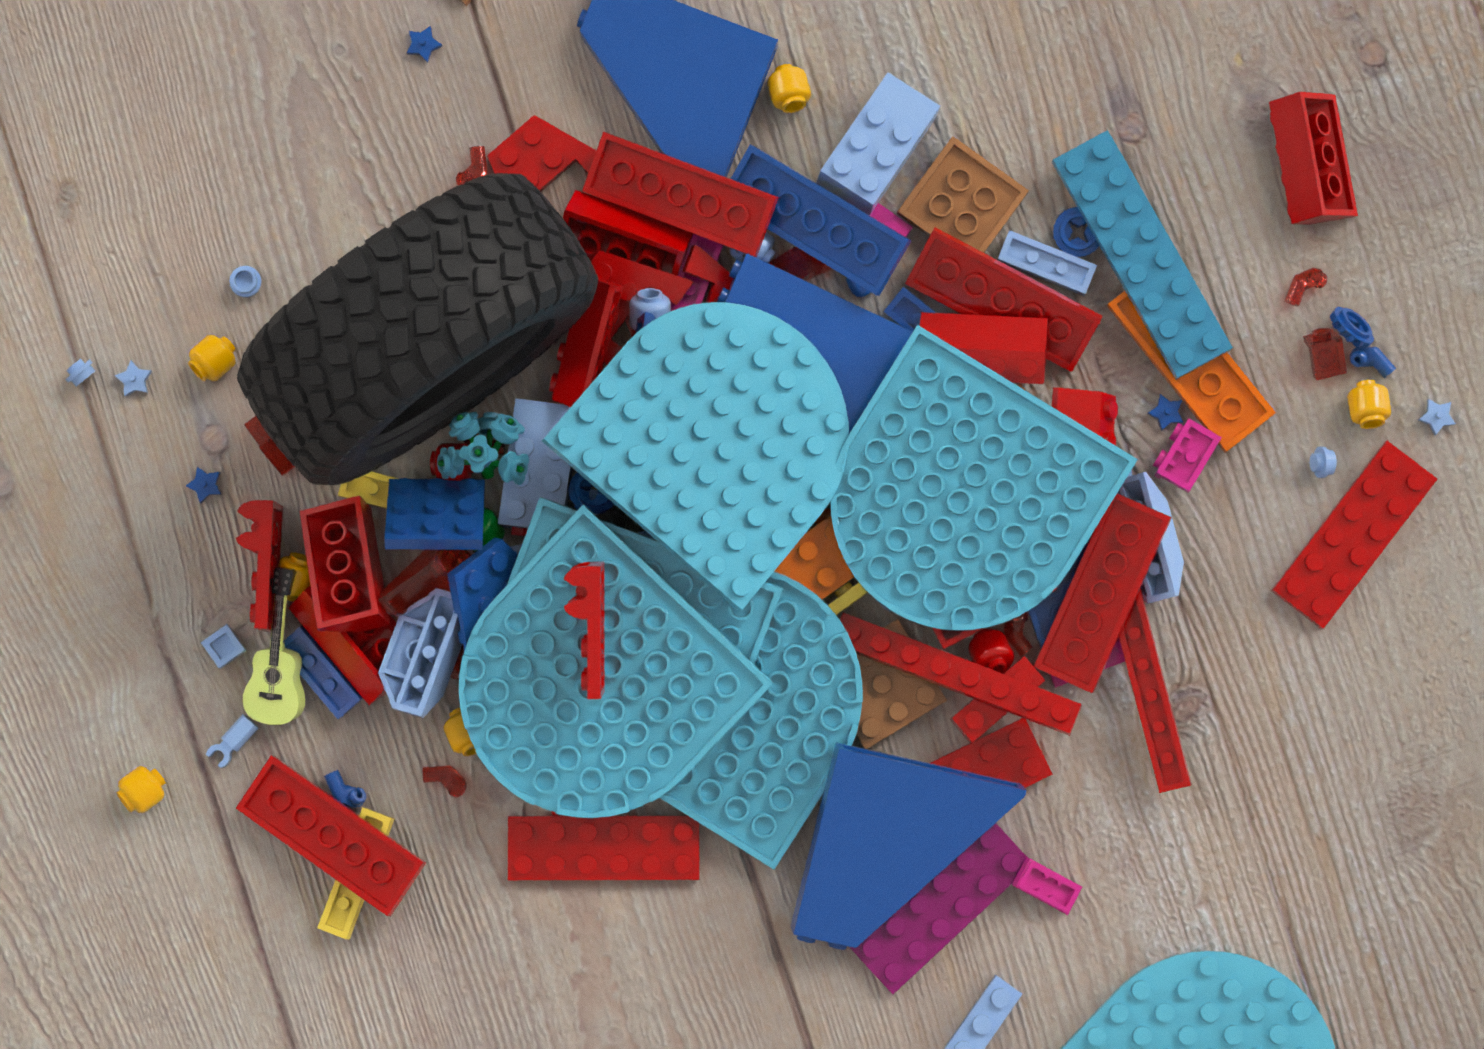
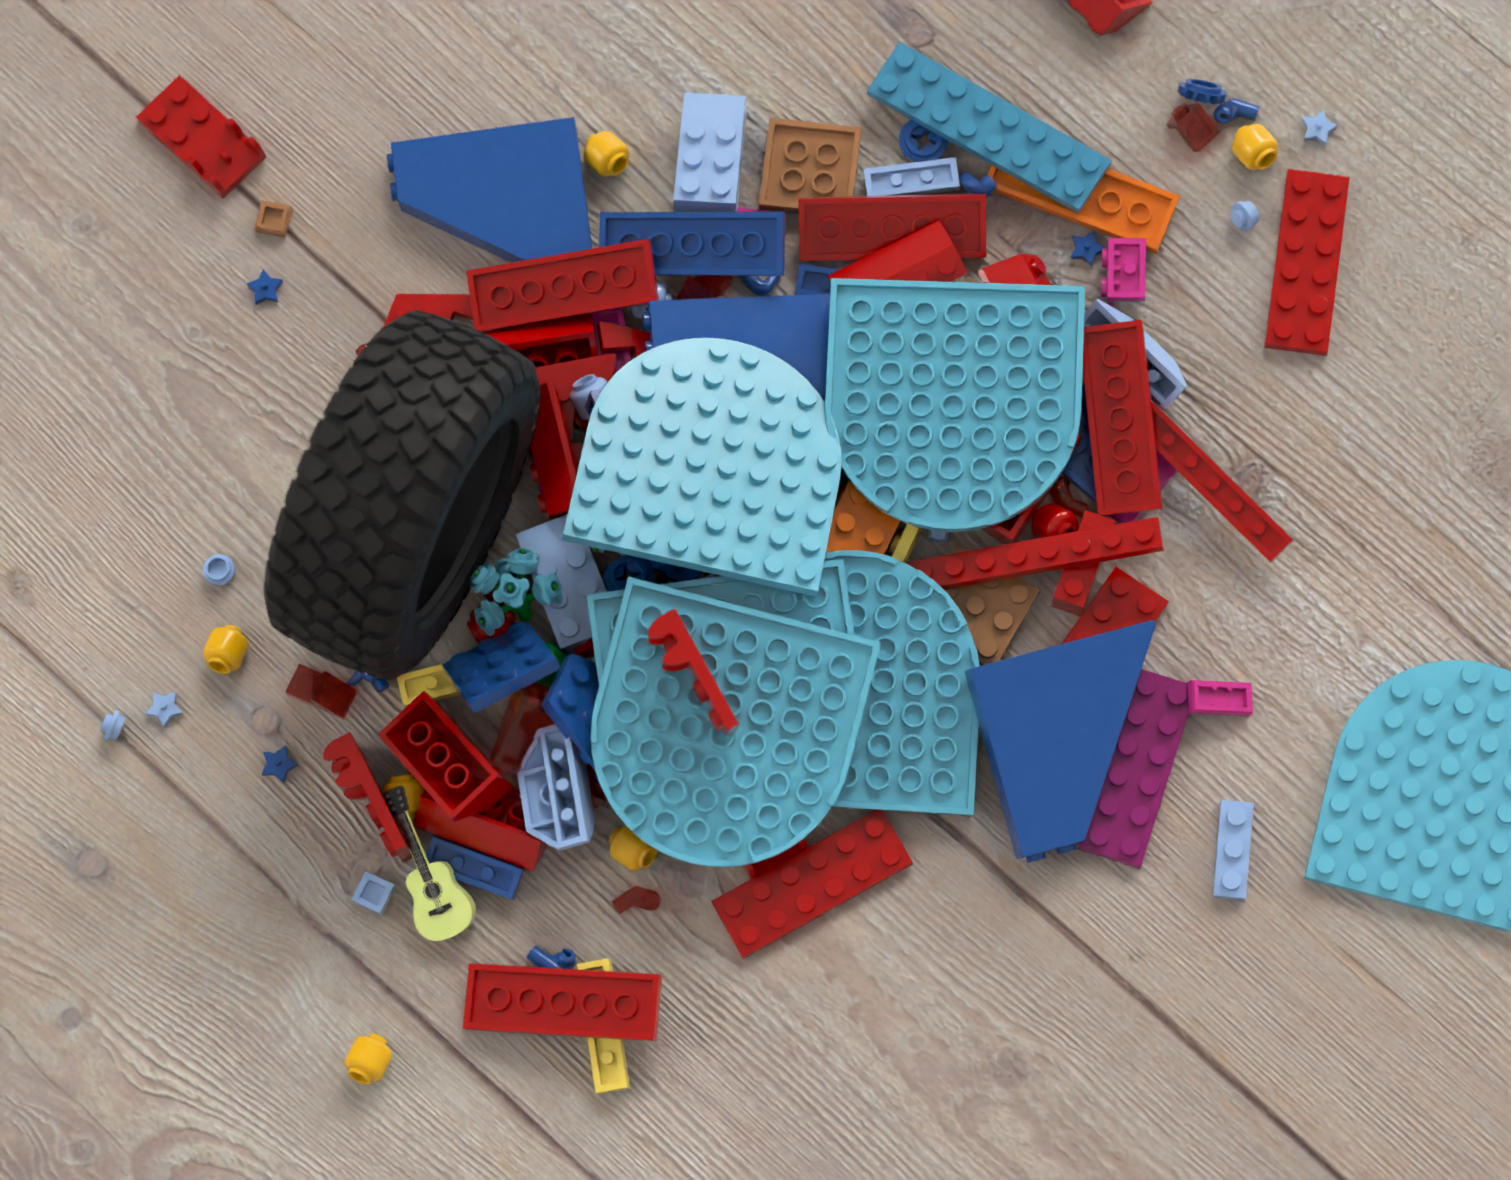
camera: 25 degrees left, 10 degrees down
(234, 739) = (427, 970): light blue bar -> none
(1097, 301) = (973, 186): none -> blue arm
(1305, 280) = (1143, 72): clear red arm -> none

